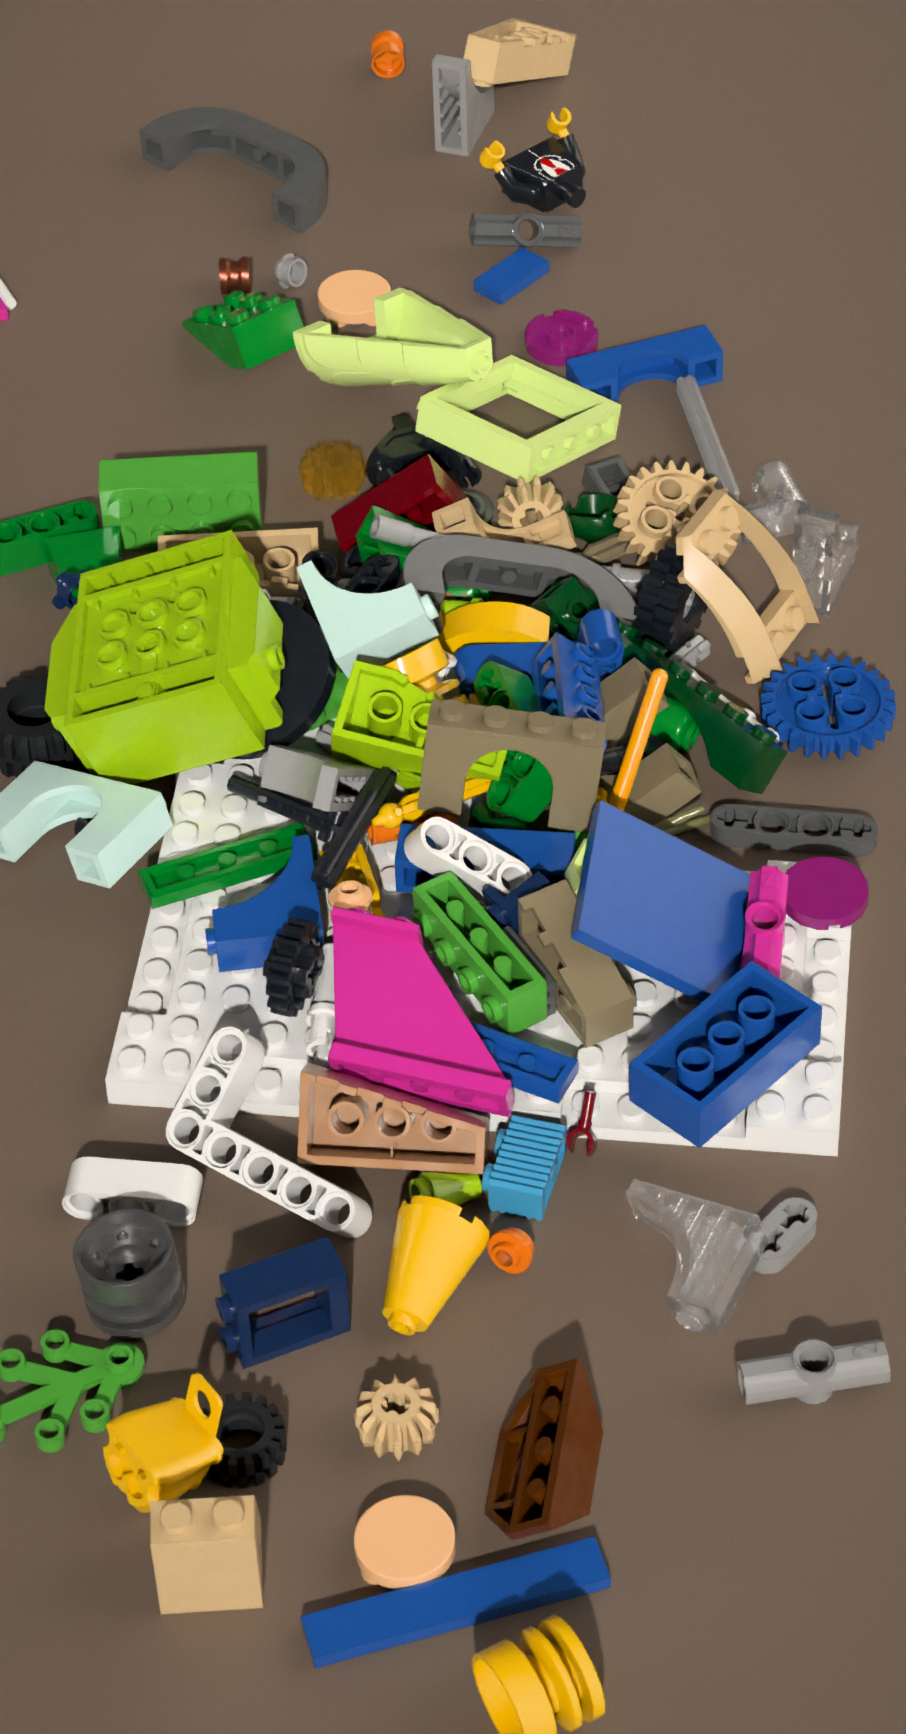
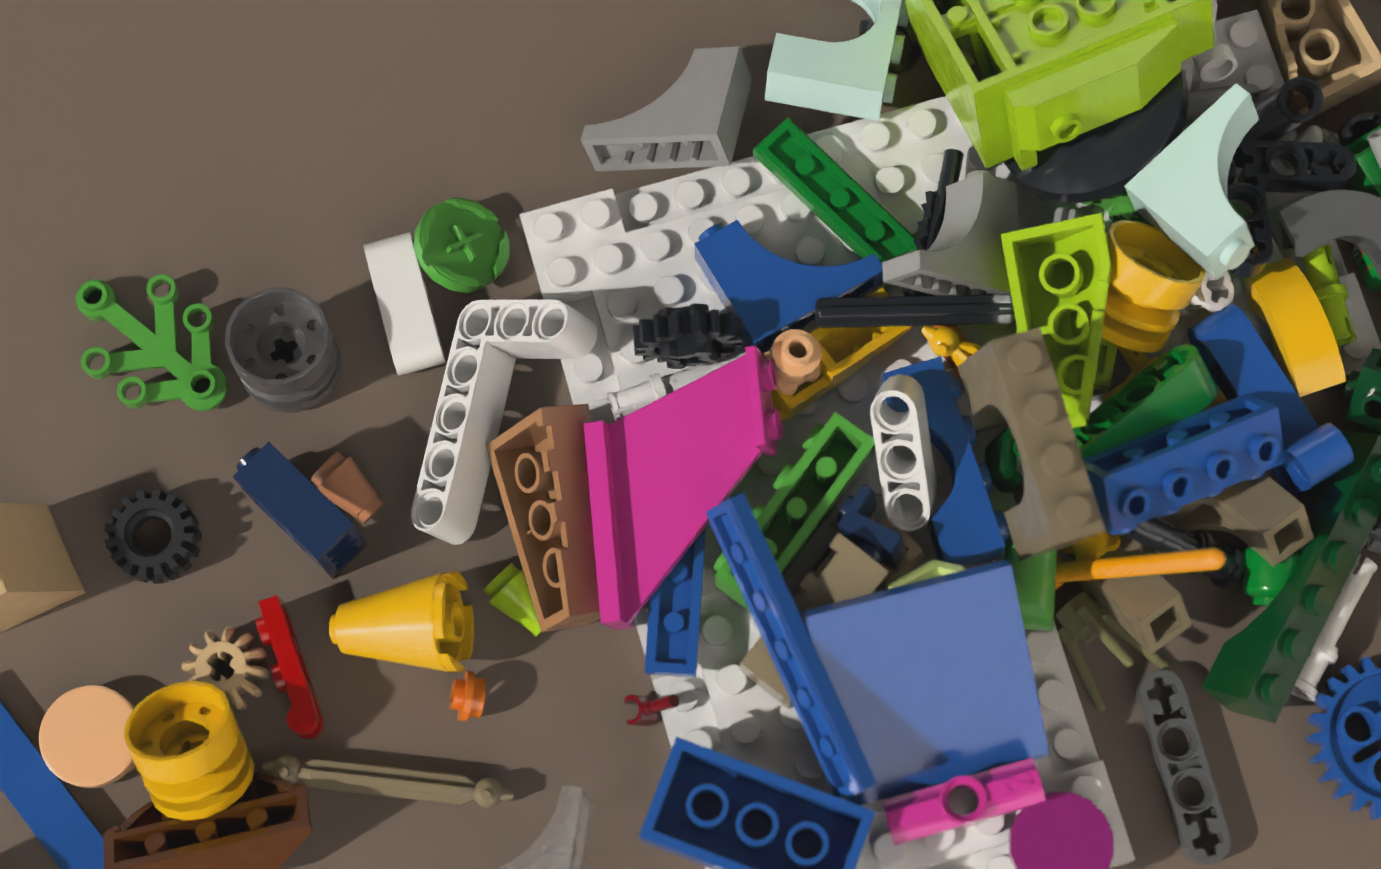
camera: 70 degrees right, 30 degrees up
(100, 945) = (685, 126): none -> light grey arch
(106, 1134) = (461, 245): none -> bright green tile
(164, 1446) = (90, 474): yellow piece -> none
(431, 1365) = (291, 671): none -> red plate
(463, 1437) = (189, 750): none -> yellow wheel
(526, 1167) = (578, 667): dark azure brick -> none
(558, 1327) = (388, 781): none -> dark tan wheel
(592, 960) = (790, 647): none -> blue tile

